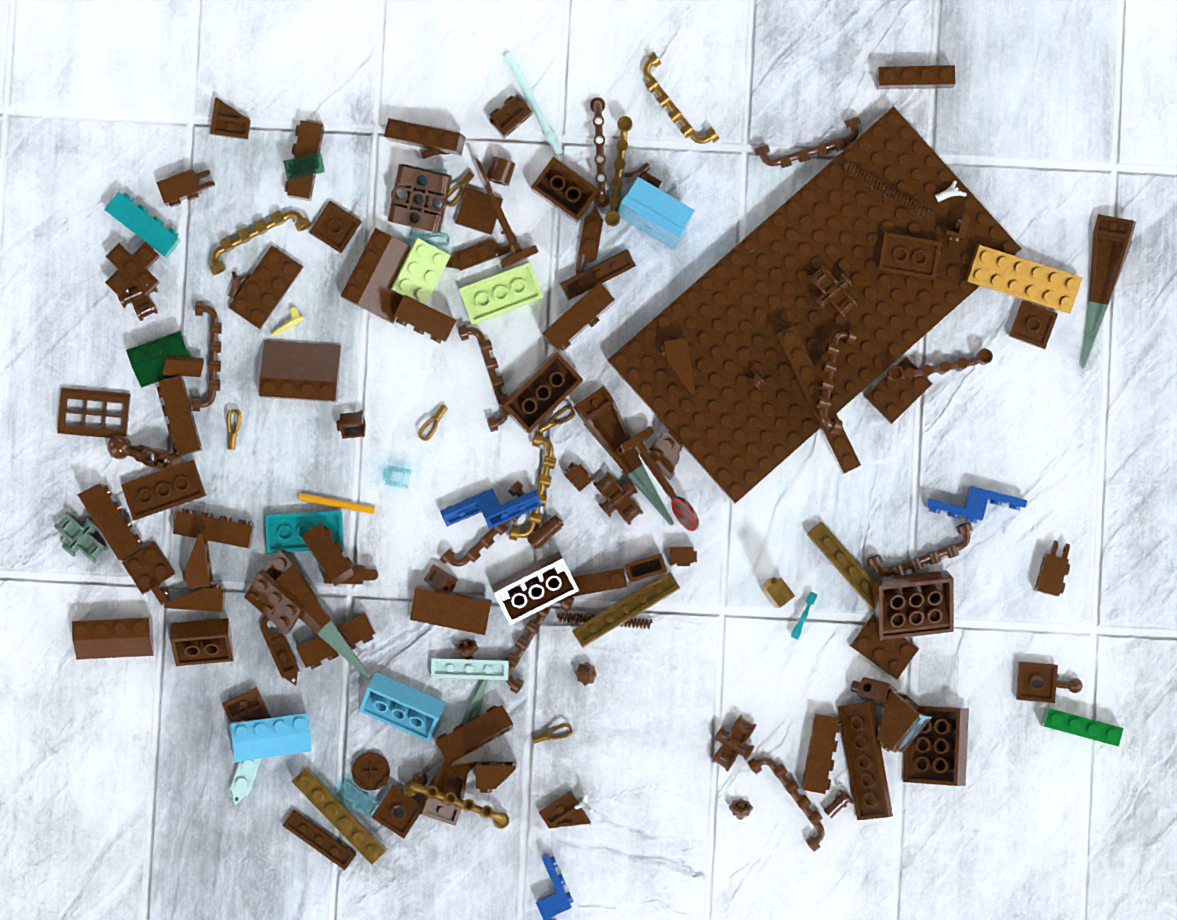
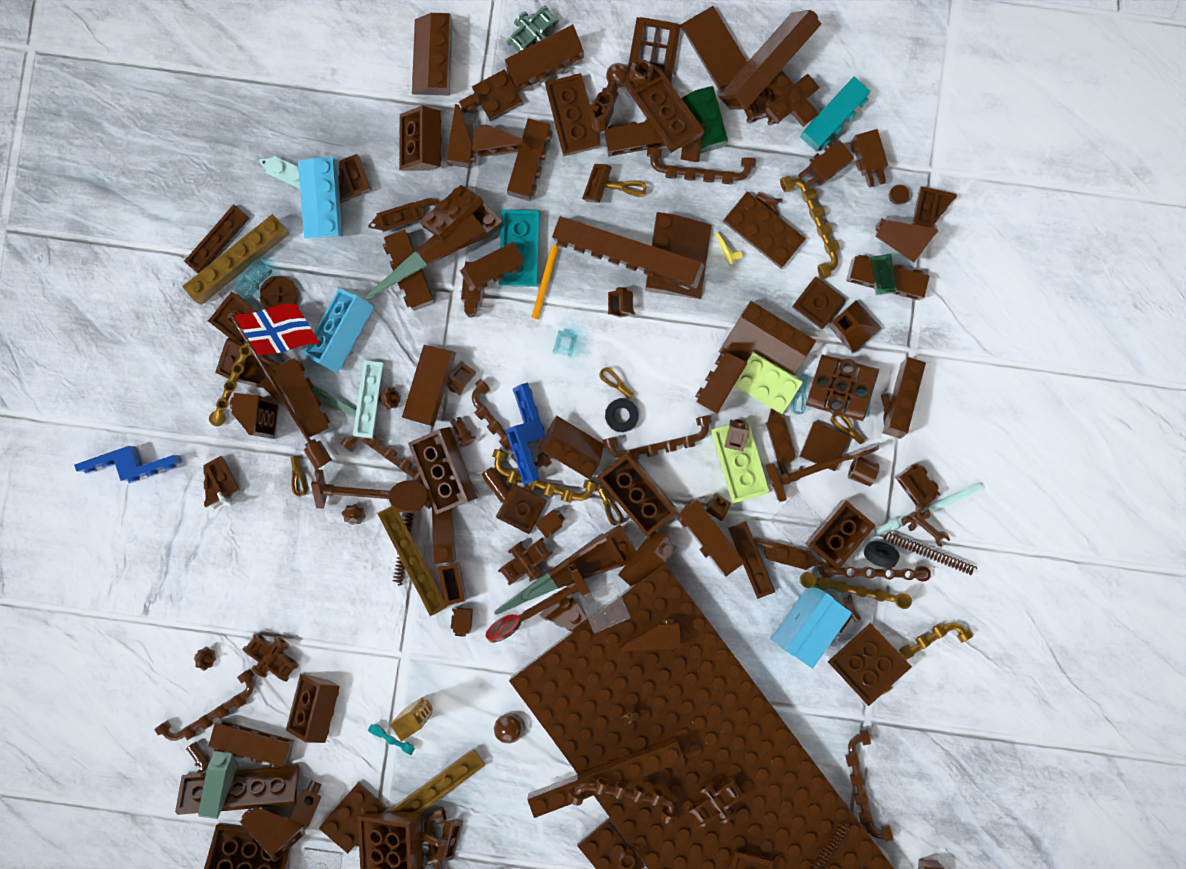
camera: 95 degrees right, 0 degrees up
(82, 350) = (714, 46): none -> reddish brown tile
(94, 295) = (770, 59): none -> reddish brown brick
(151, 398) = (662, 106): none -> reddish brown plate
(195, 229) = (827, 164): none -> reddish brown hinge
(219, 155) = (898, 194): none -> reddish brown tile
(232, 459) = (597, 183): none -> reddish brown plate
(262, 147) = (906, 235): none -> reddish brown slope
(302, 421) = (628, 252): none -> reddish brown brick
(356, 190) = (854, 326): none -> reddish brown slope
(411, 765) = (273, 333): none -> flag
(464, 403) = (633, 415): none -> black tyre
(475, 298) = (737, 435): none -> bracket
(496, 571) = (462, 432): none -> reddish brown pin
(501, 460) = (572, 447): none -> reddish brown slope
(542, 113) = (918, 518): none -> reddish brown bar
(548, 311) = (718, 506): none -> reddish brown bracket
(563, 623) = (404, 496): none -> reddish brown piece
(566, 506) = (521, 508): none -> reddish brown tile
(574, 99) = (932, 555): none -> reddish brown piece
(581, 155) = (881, 554): none -> black tyre
(604, 377) = (647, 558): none -> reddish brown slope
(655, 414) = (604, 607): none -> clear tile
(690, 152) = (869, 664): none -> reddish brown plate
(780, 696) = (312, 709): none -> reddish brown slope
(784, 500) = (509, 728): none -> reddish brown hair
(859, 779) = (217, 784): none -> sand green slope
(898, 550) = (448, 843): none -> reddish brown plate

